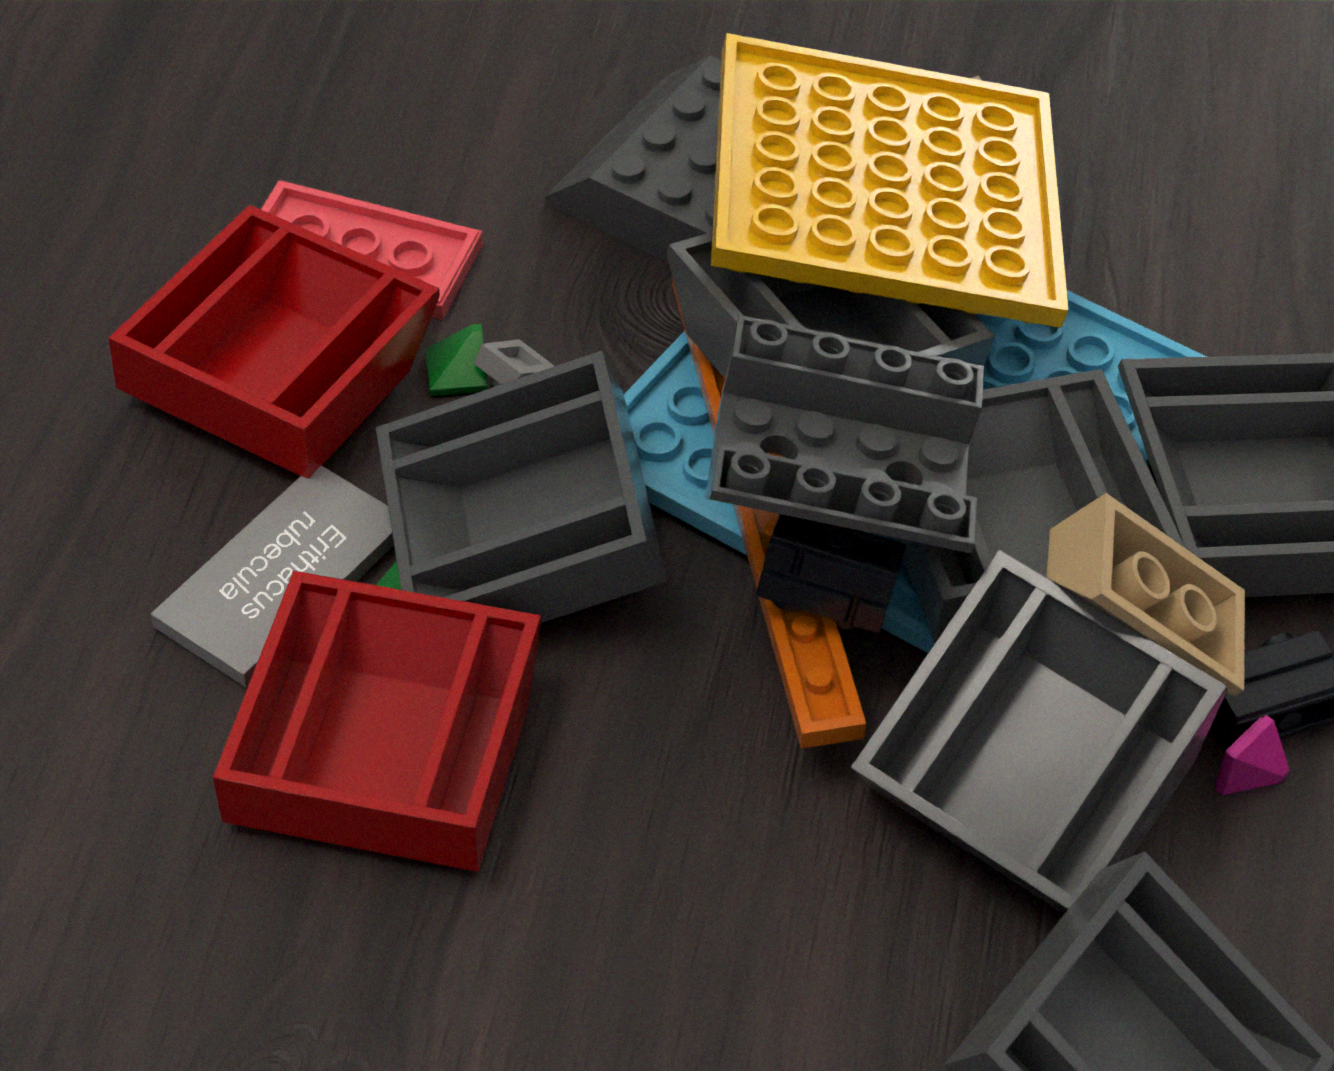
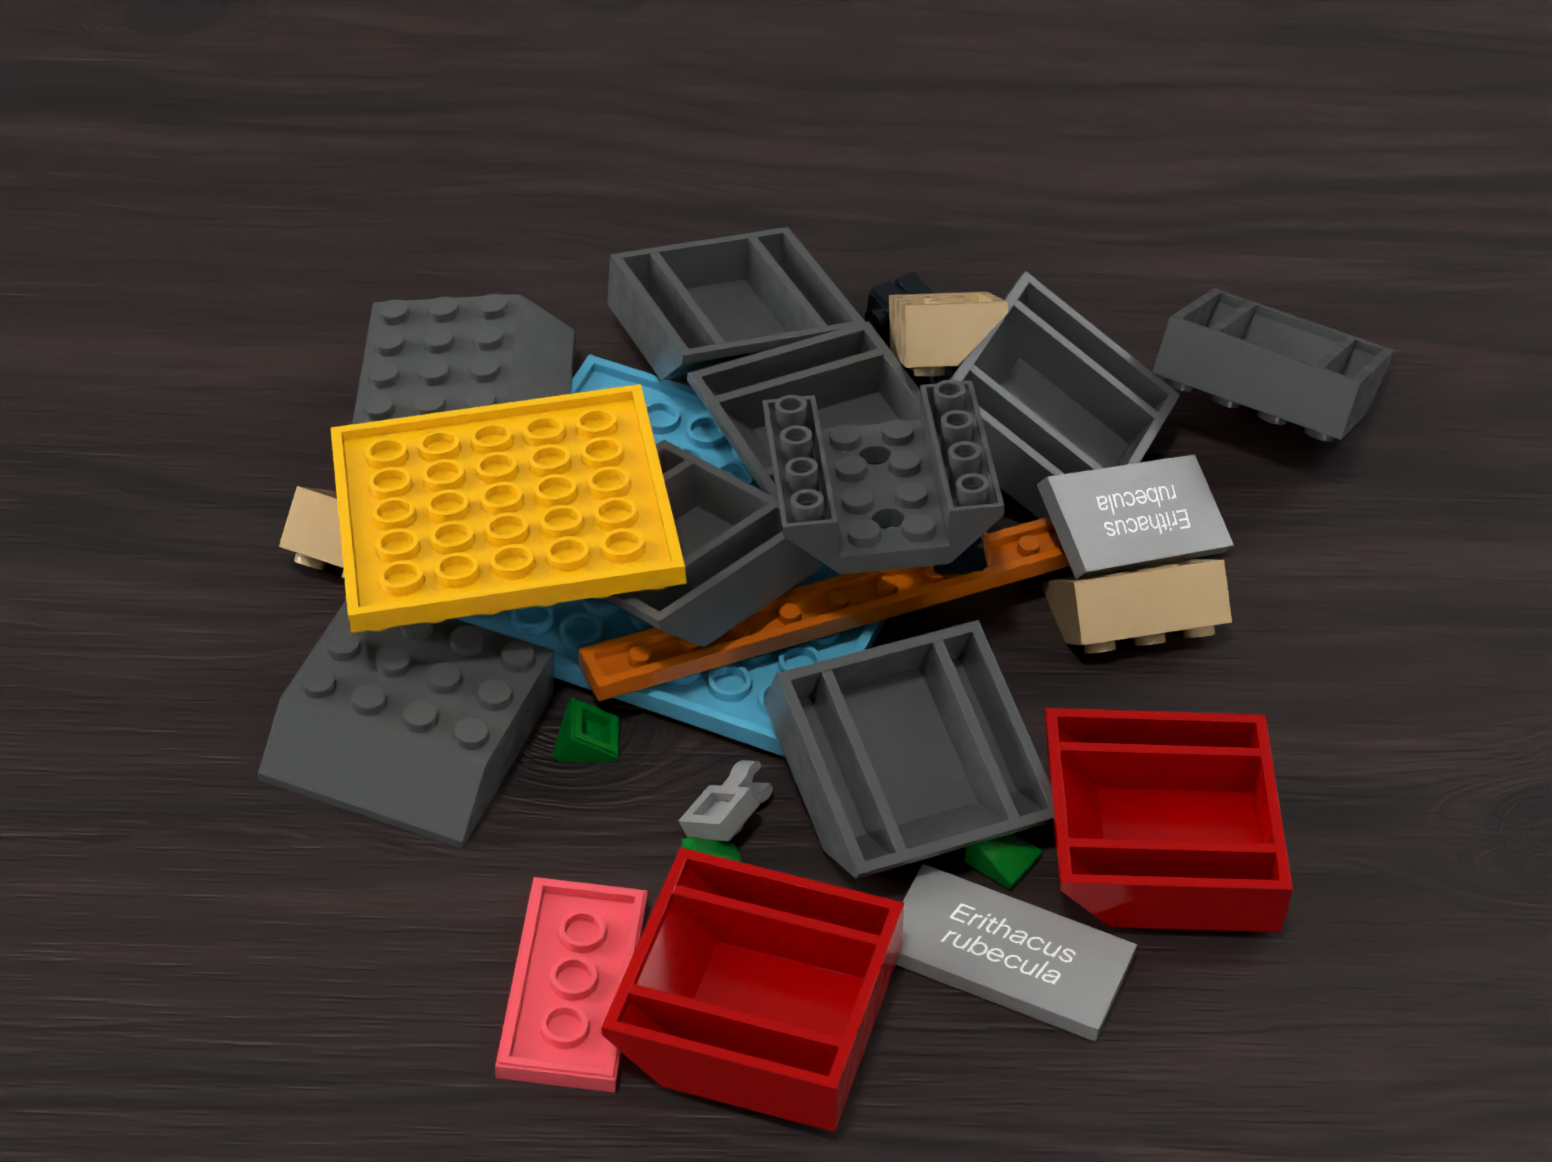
camera: 105 degrees left, 5 degrees down
(653, 300) = (587, 735): none -> green slope
(743, 805) = (1140, 604): none -> tan slope
(851, 803) = (1134, 515): none -> light grey tile
(1167, 240) = (461, 355): none -> dark grey slope

